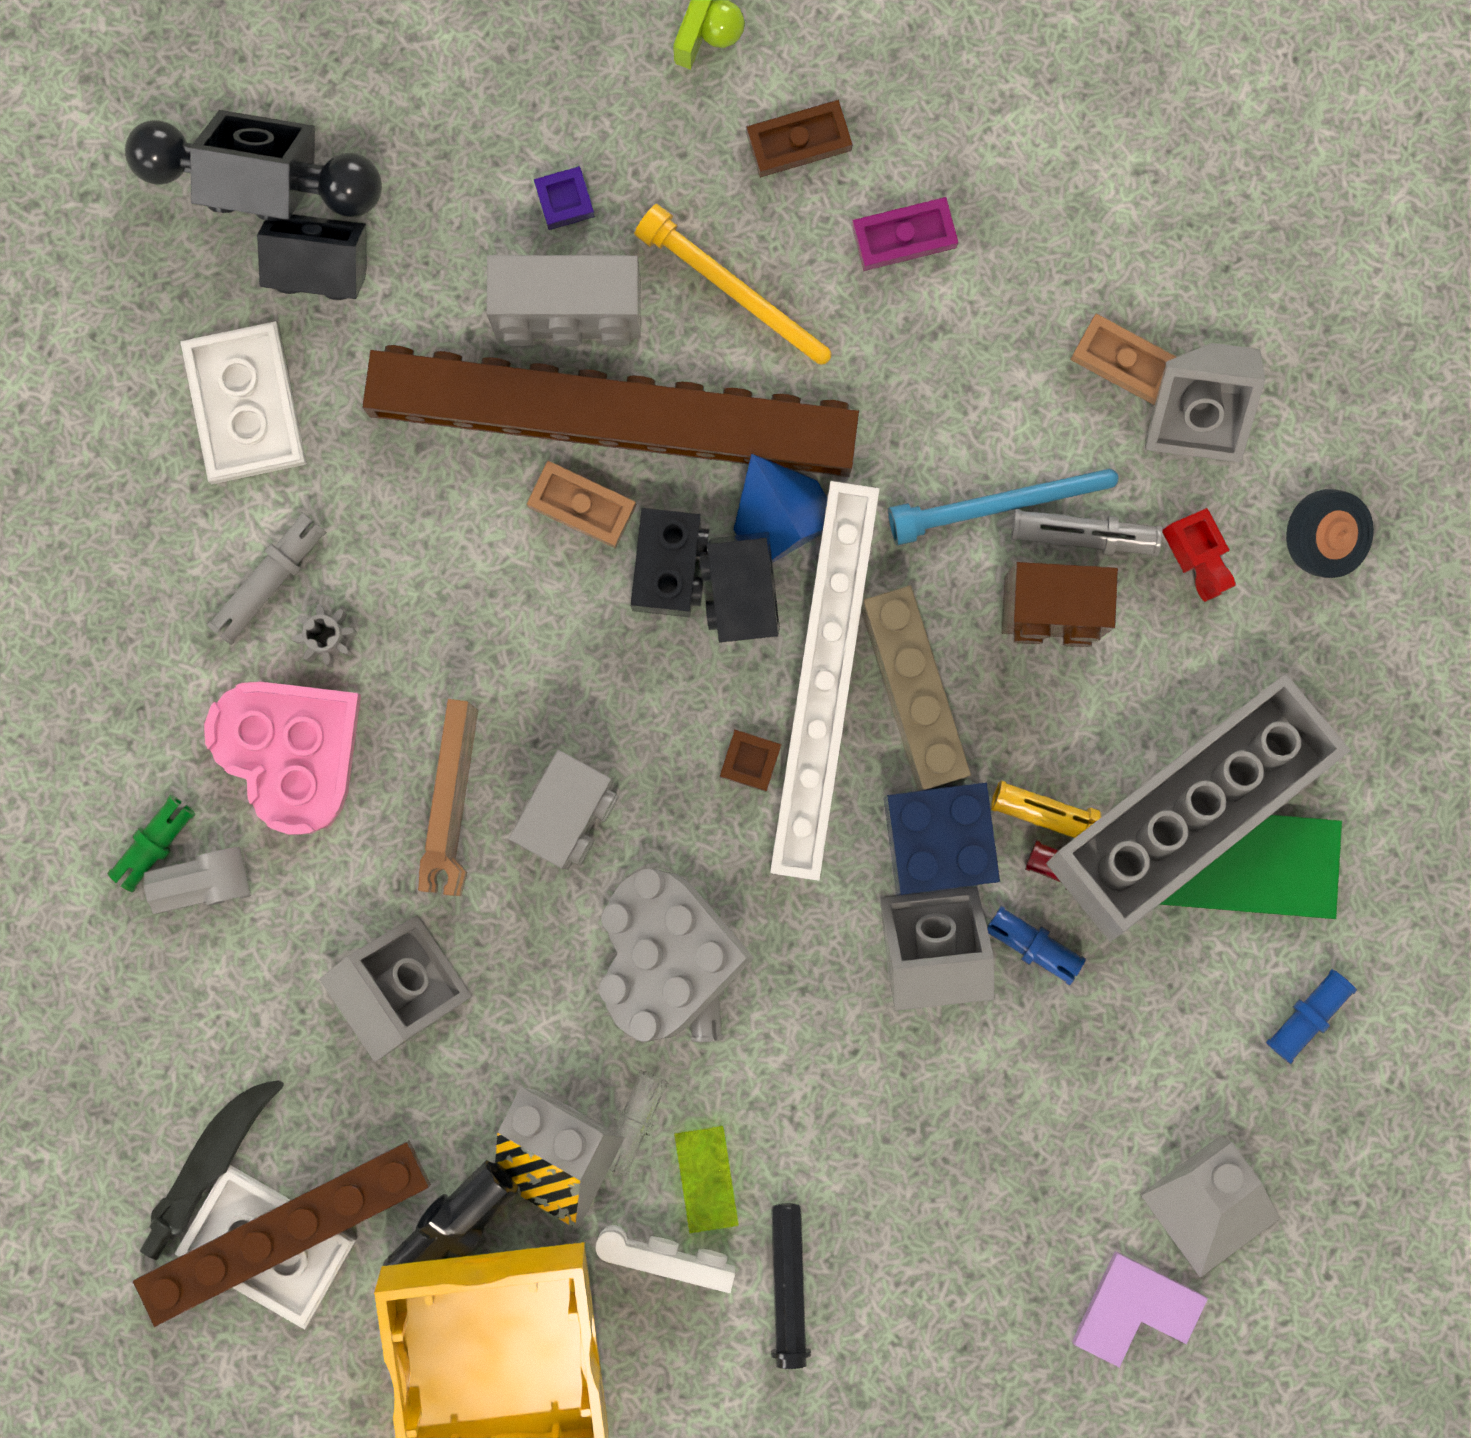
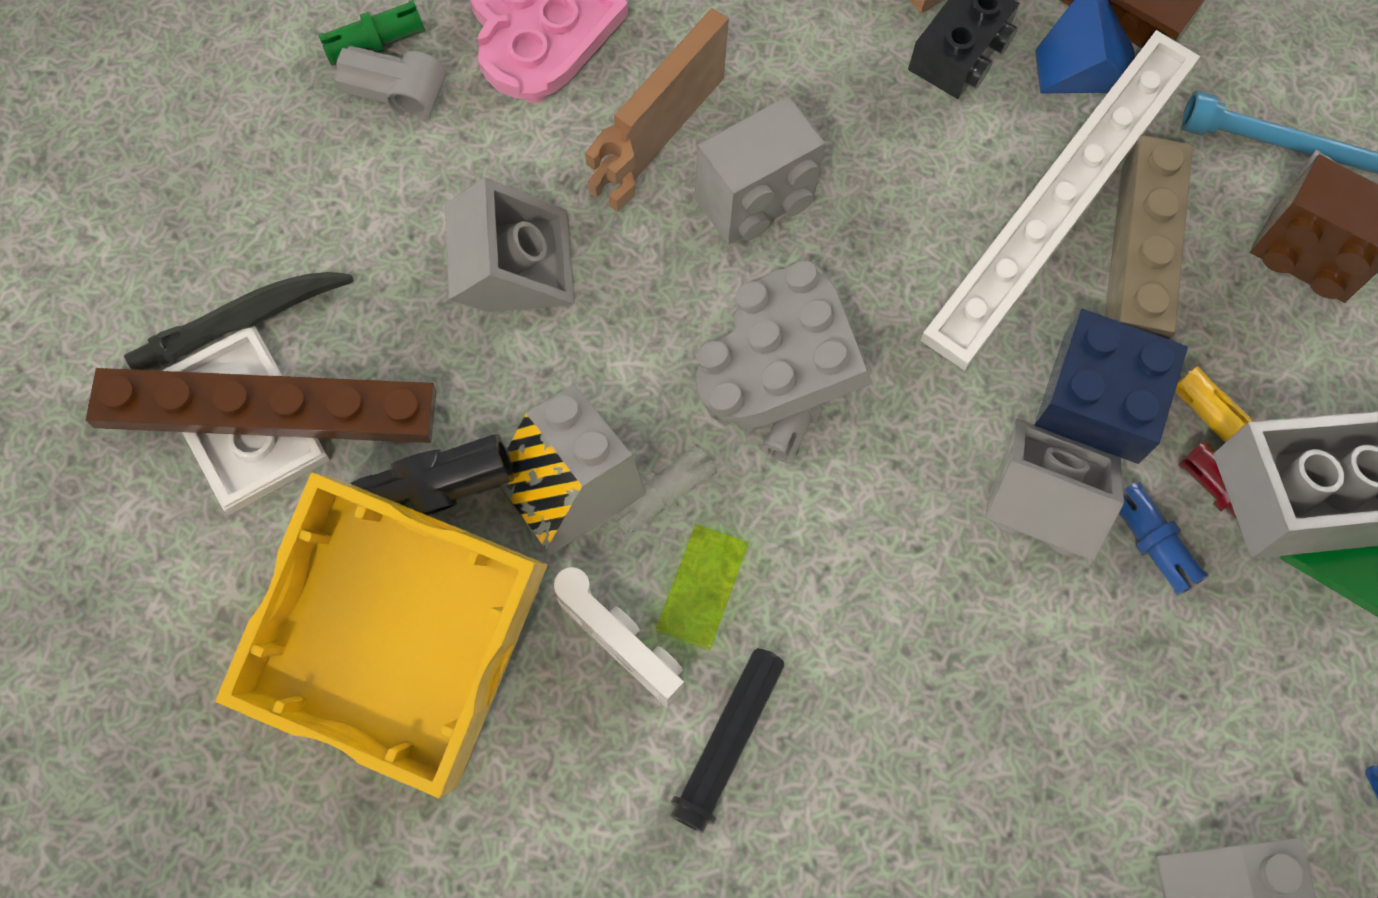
camera: 30 degrees right, 15 degrees down
(741, 587) = (1027, 77): black brick -> none
(750, 760) = (954, 232): reddish brown plate -> none

